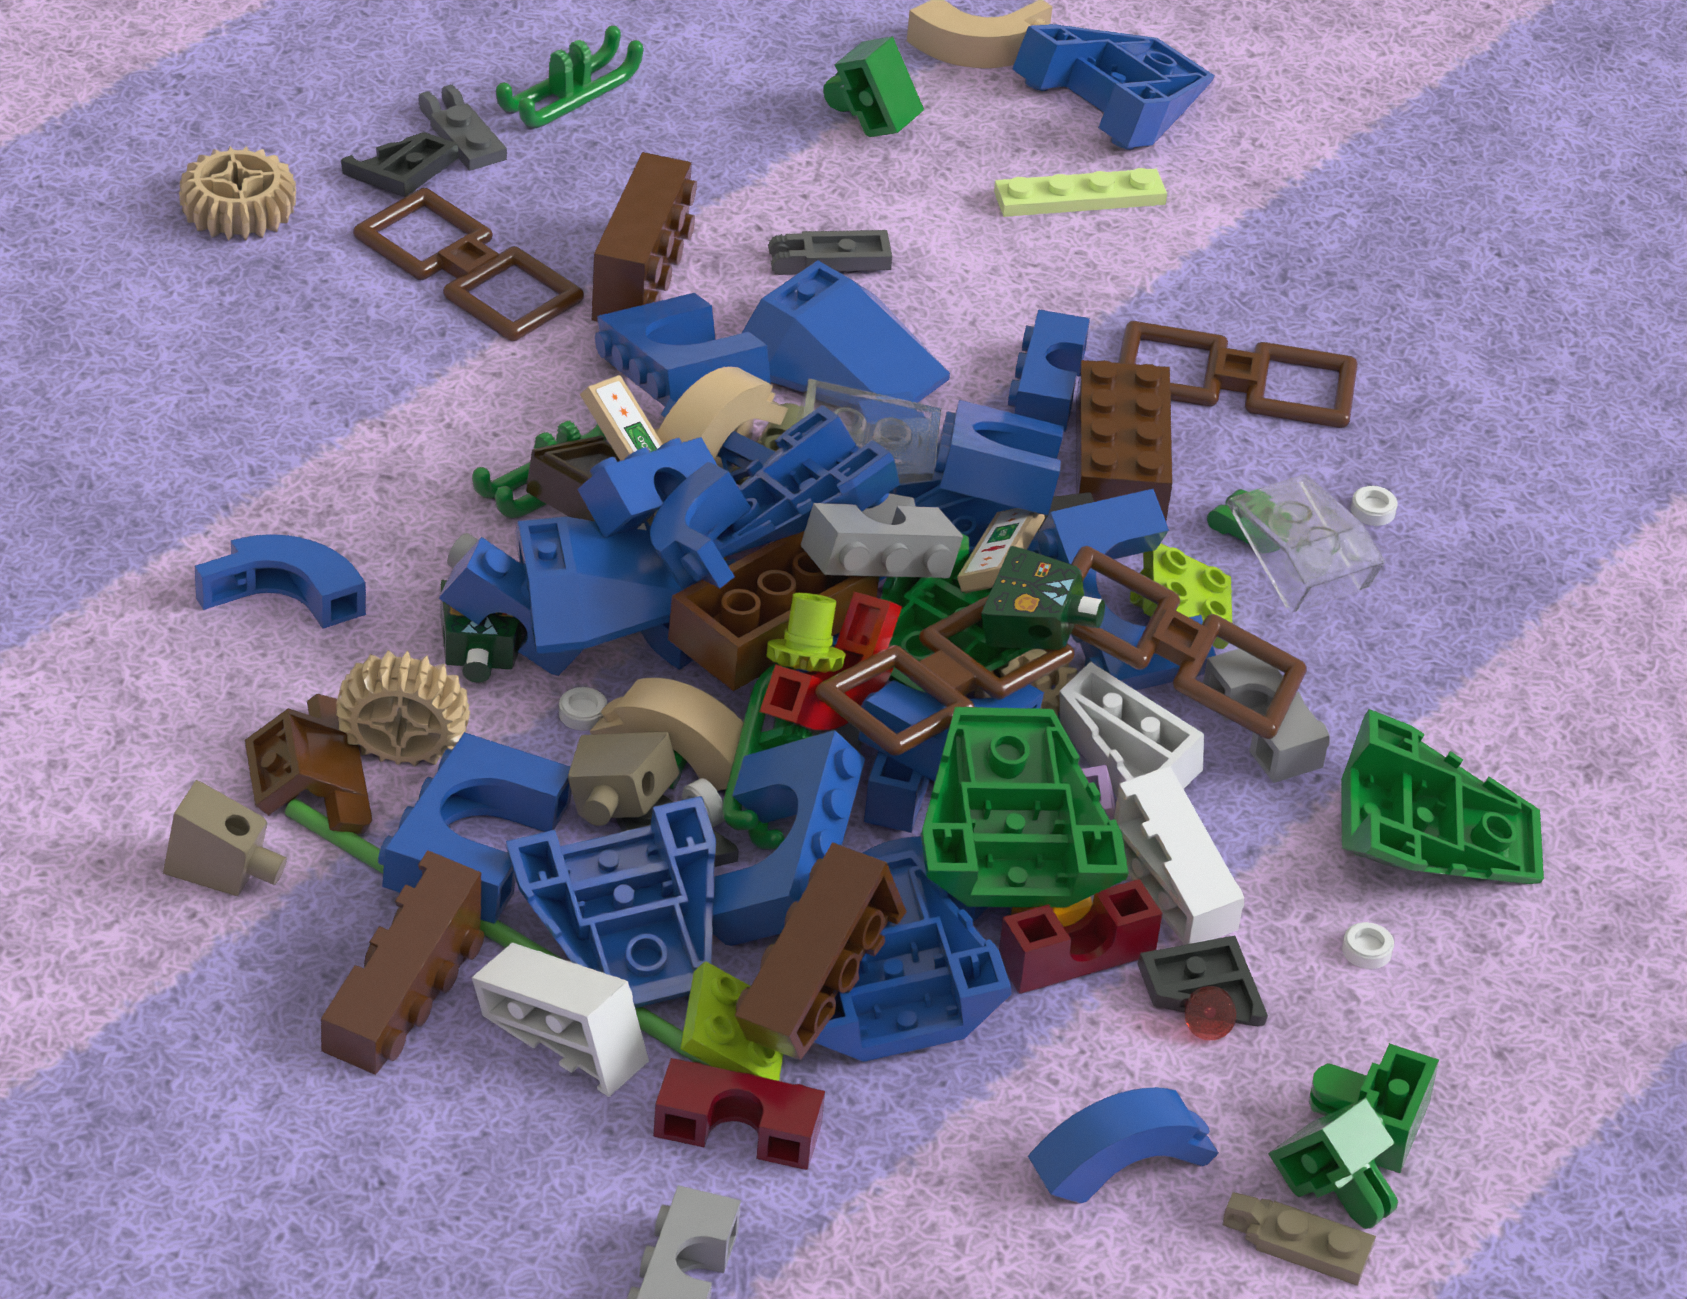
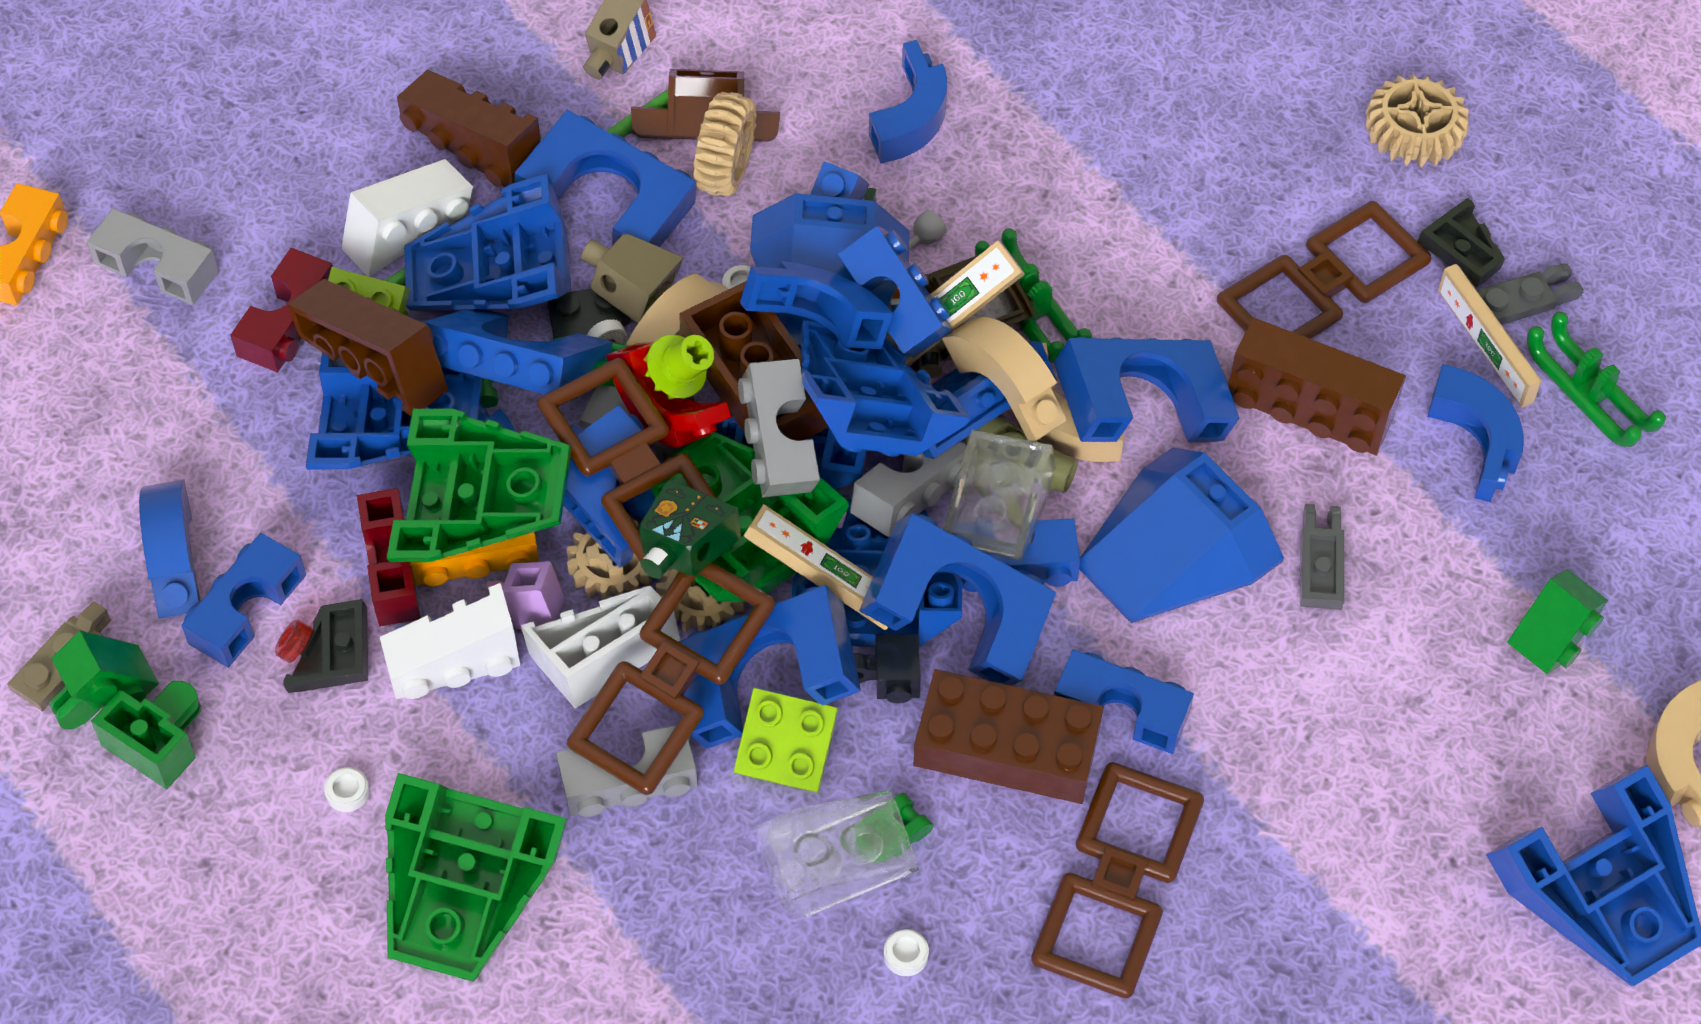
camera: 105 degrees right, 15 degrees up
(527, 143) = (1489, 335): none -> tile
(653, 132) = (1488, 416): none -> blue arch
(1080, 192) = (1420, 801): yellowish green plate -> none
(1210, 1085) = (259, 571): none -> blue arch

